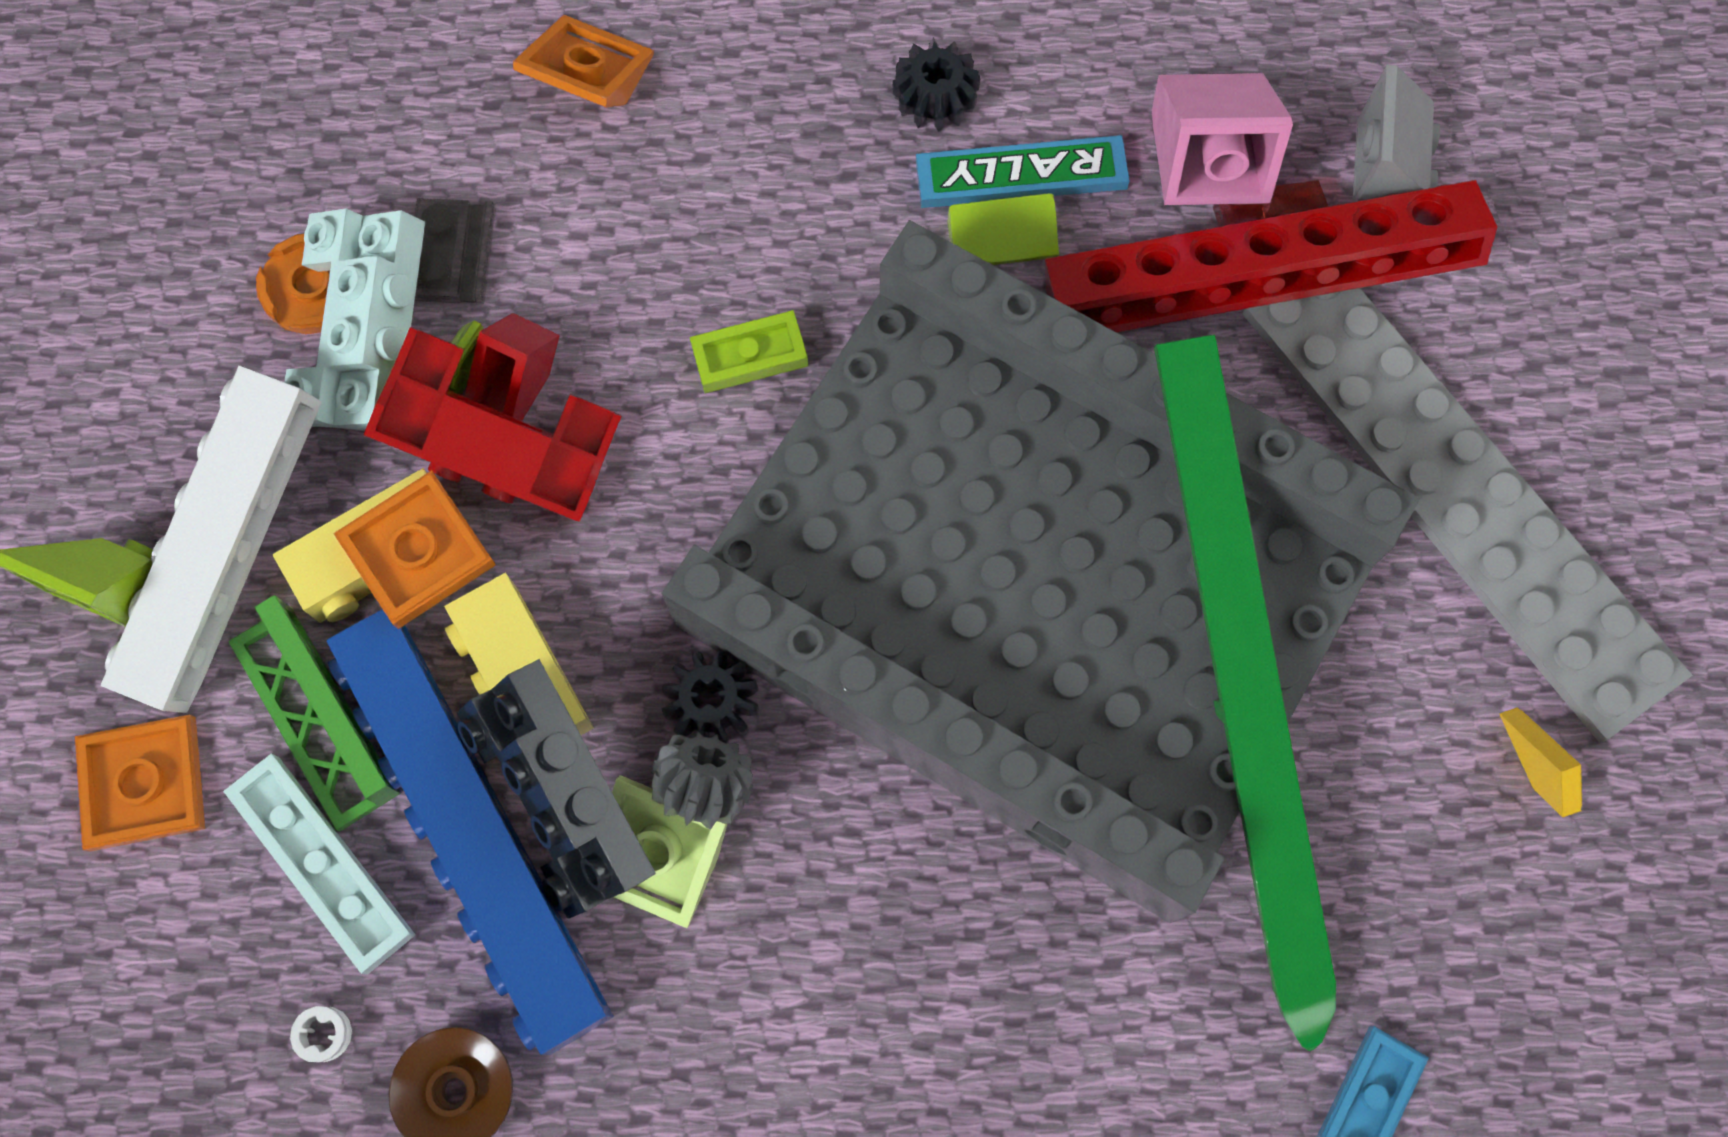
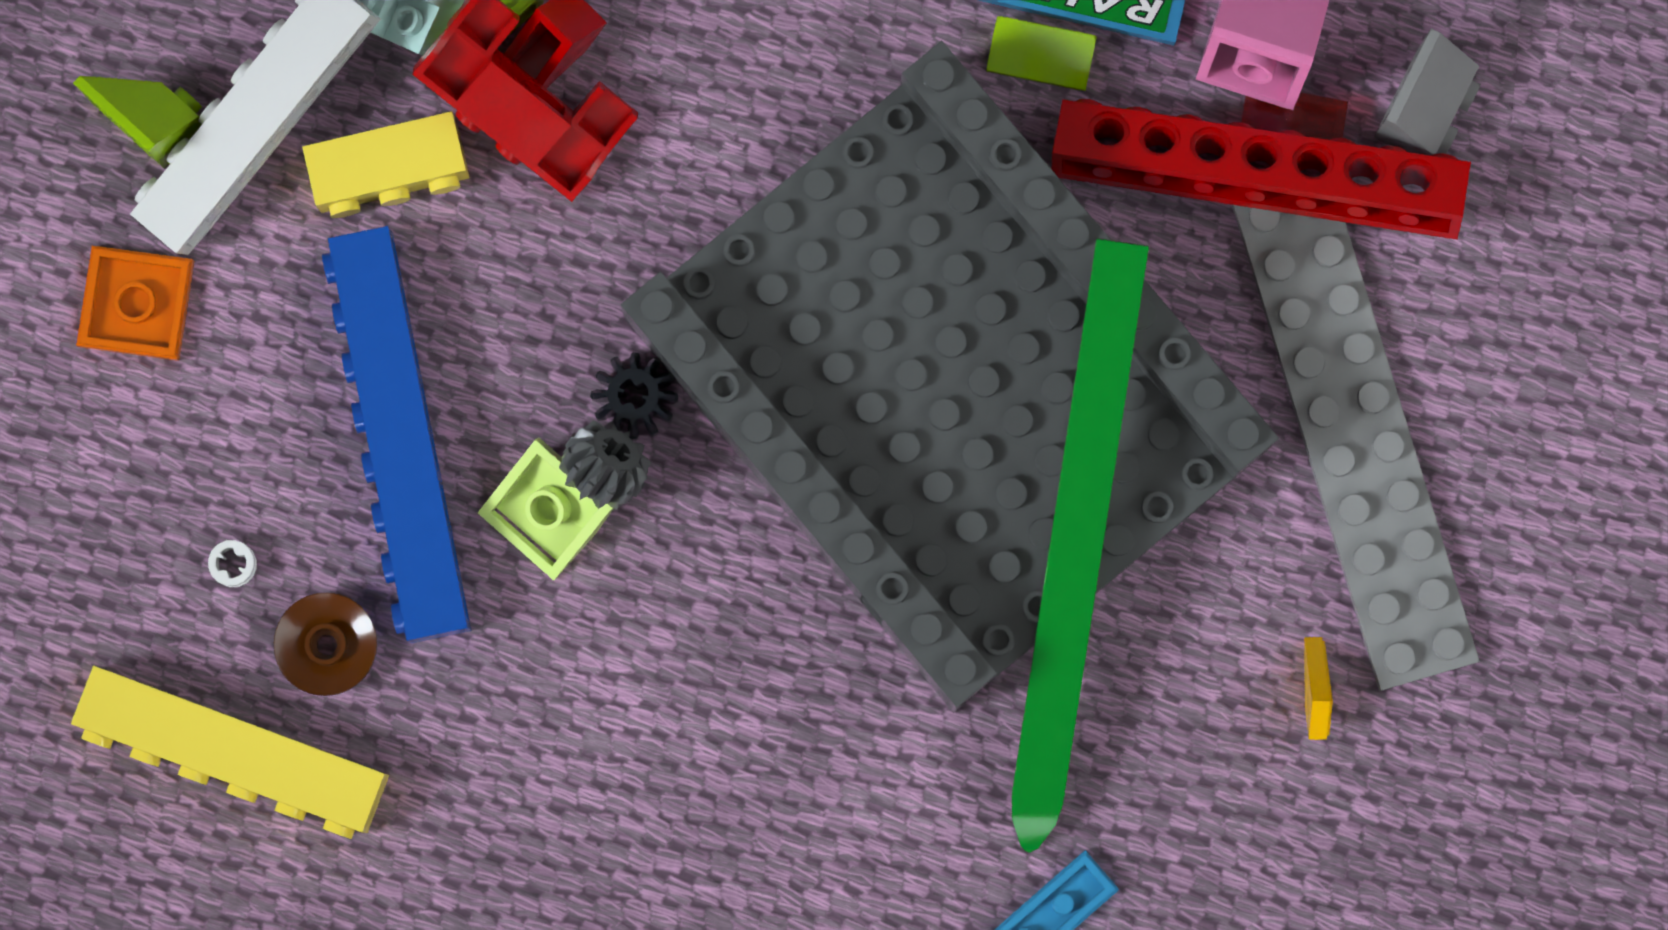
camera: 20 degrees right, 10 degrees up
(319, 864) = (268, 423): light aqua plate -> none
(325, 701) = (312, 290): bright green fence -> none
(414, 549) = (425, 184): orange tile -> none
(503, 637) = (478, 314): light yellow brick -> none
(559, 787) = (487, 433): black bracket -> none
(749, 351) = (770, 91): lime plate -> none

